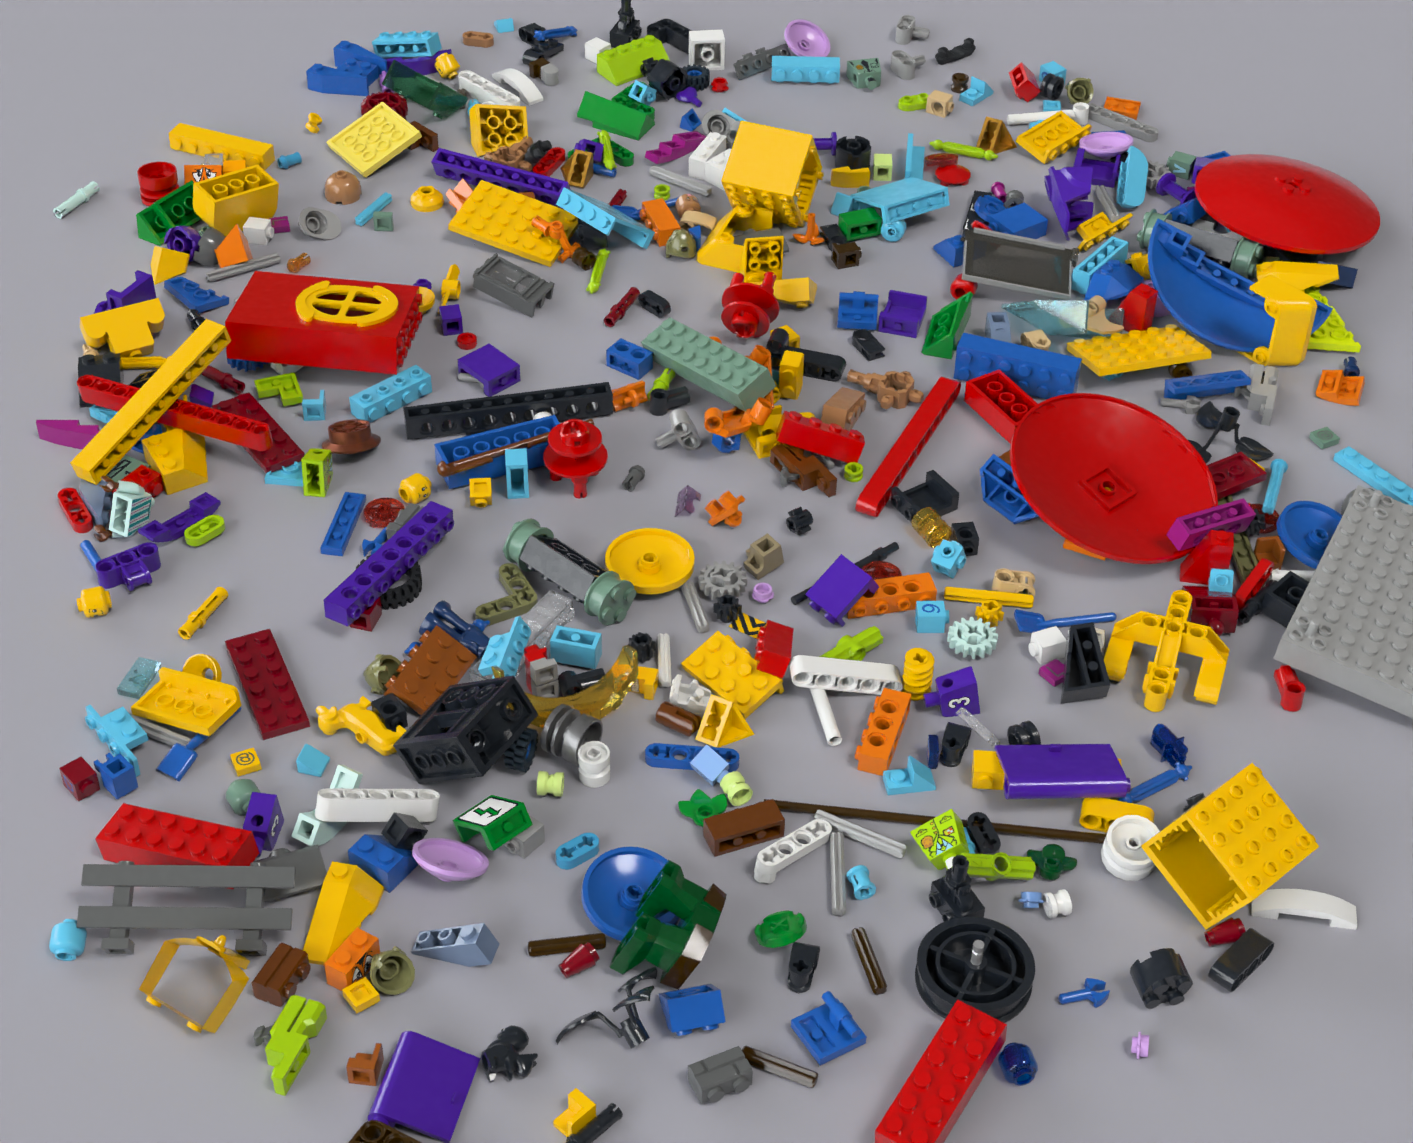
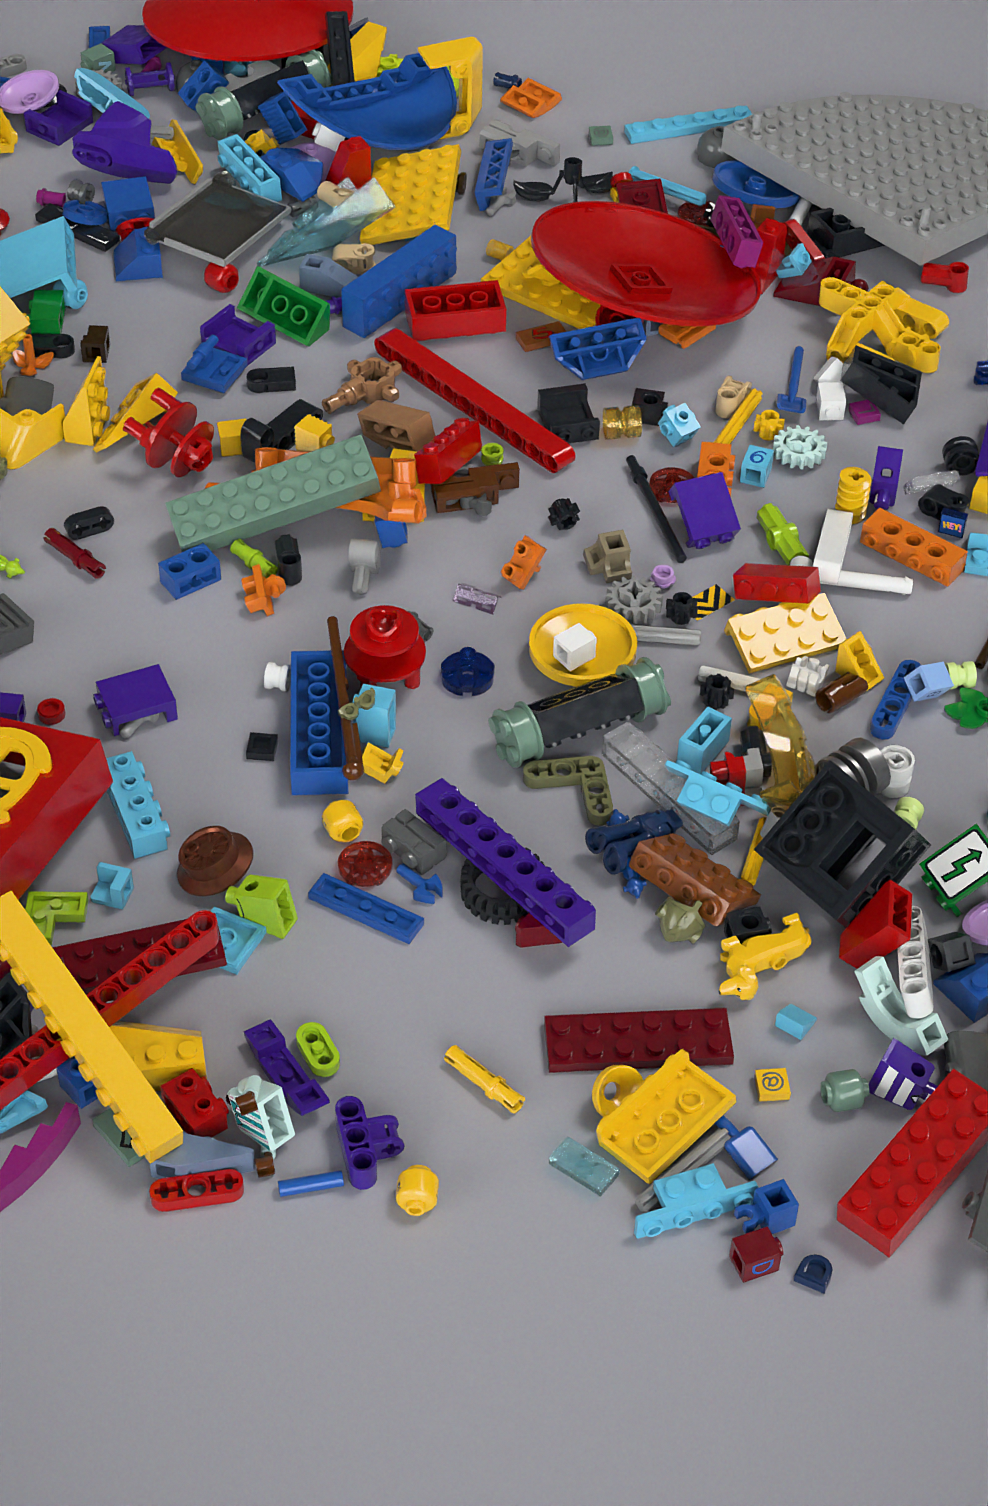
camera: 70 degrees left, 5 degrees up
(77, 818) = (814, 1272): none -> dark blue tile
(404, 772) = (879, 926): none -> red slope
(495, 449) = (365, 701): none -> olive piece
(507, 410) = (239, 702): black brick -> none
(609, 514) = (467, 661): none -> clear blue plate
(629, 548) = (574, 646): none -> white brick
(1260, 458) = (620, 178): none -> red tile
(1273, 254) = (339, 47): none -> black tile

